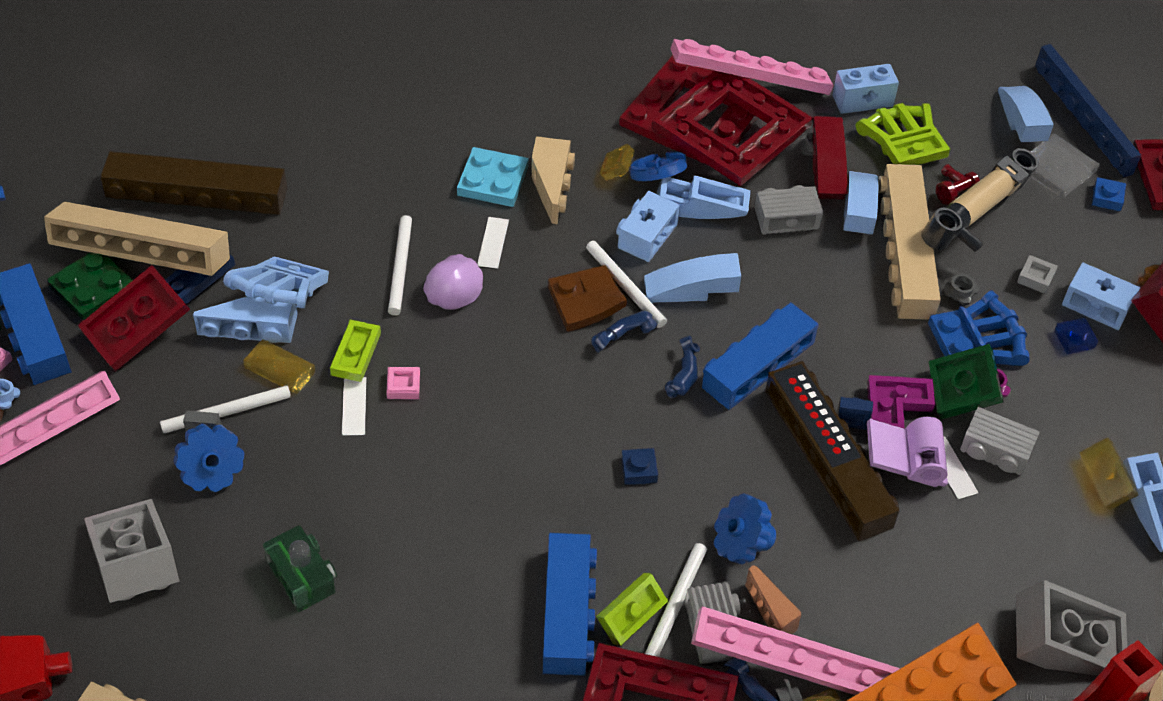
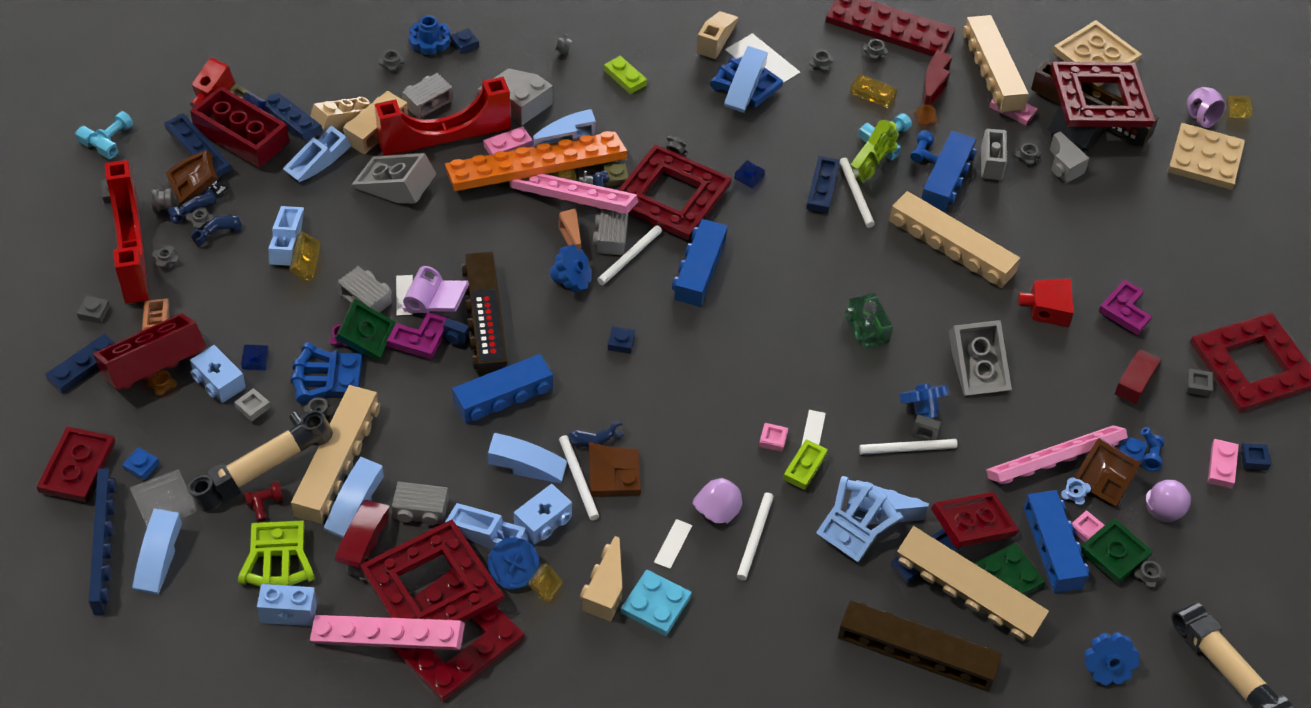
camera: 165 degrees left, 0 degrees up
(279, 366) = (863, 468): clear yellow plate -> none
(632, 608) = (652, 255): lime plate -> none
(689, 374) = (571, 382): dark blue arm -> none

